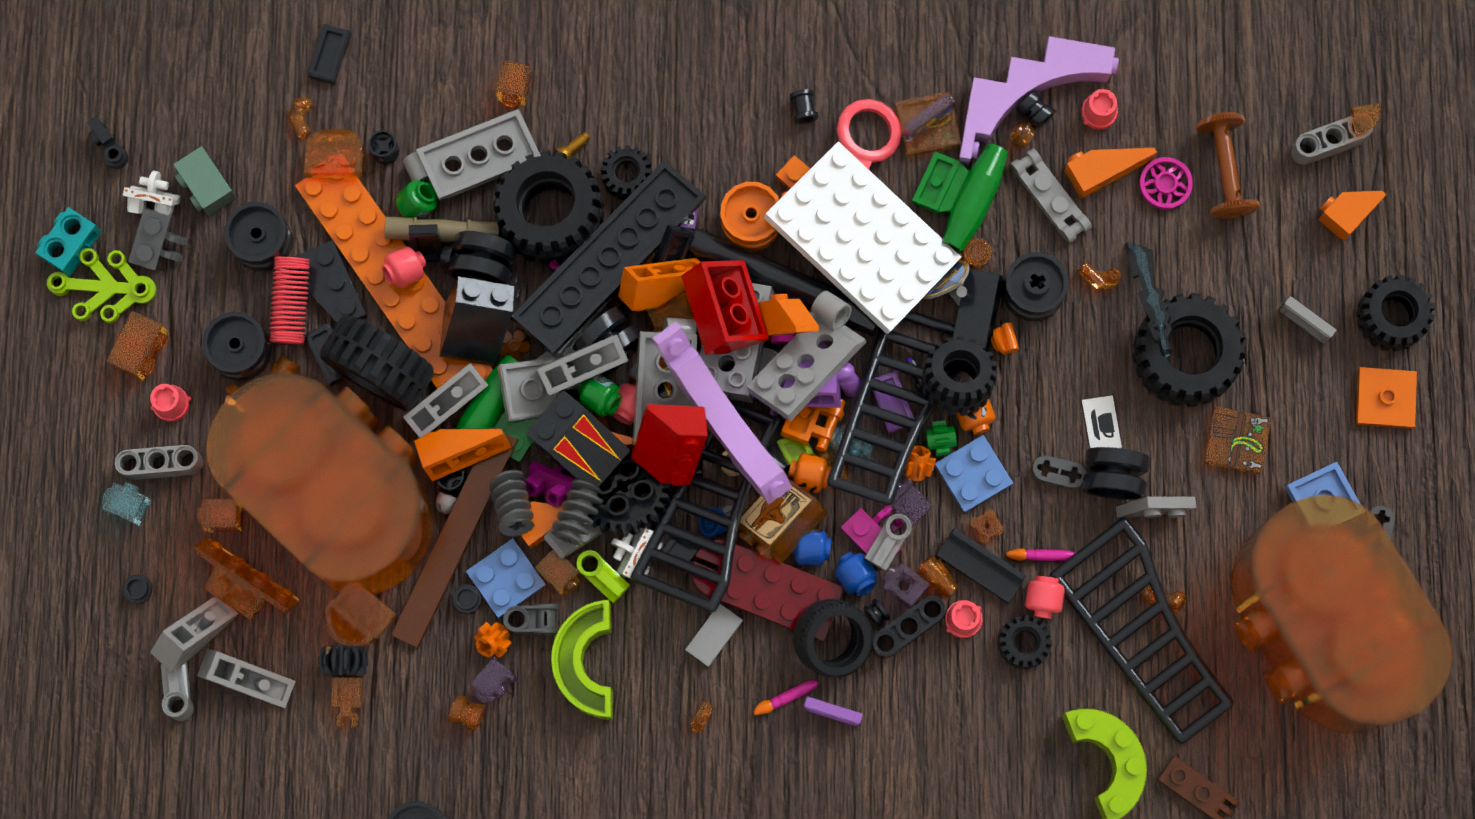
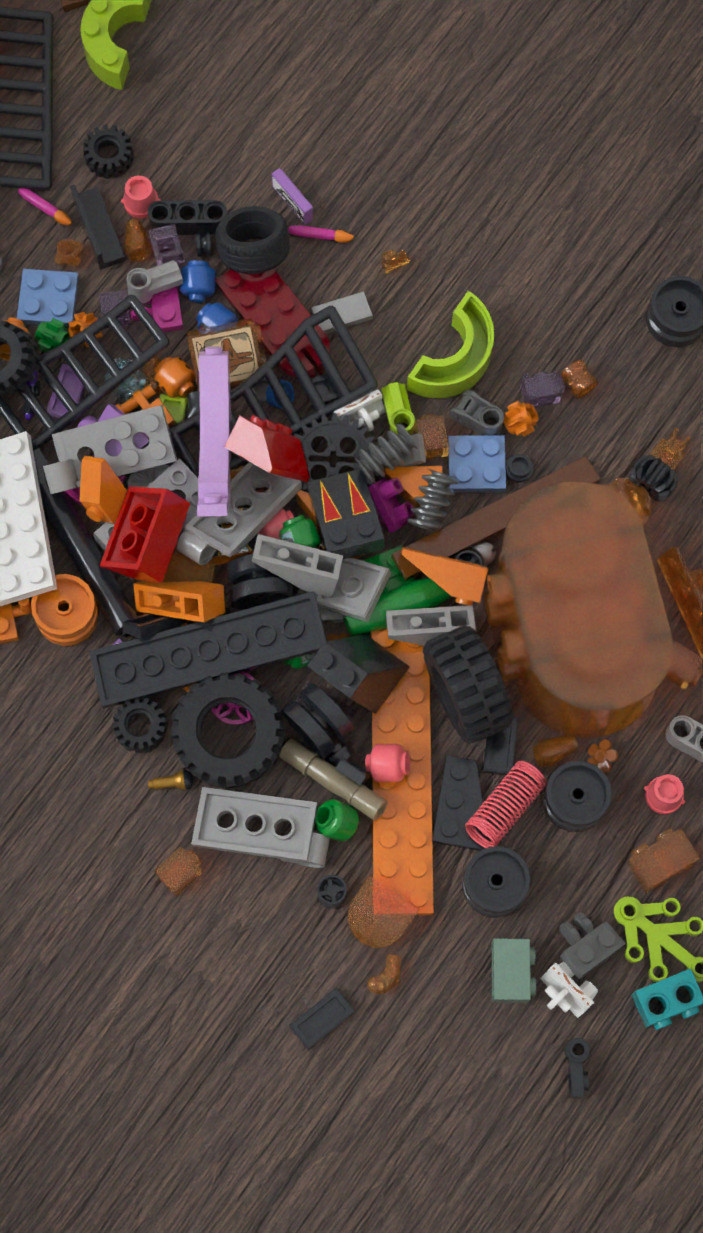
camera: 150 degrees left, 5 degrees down
(1044, 596) = (67, 170): coral head -> none

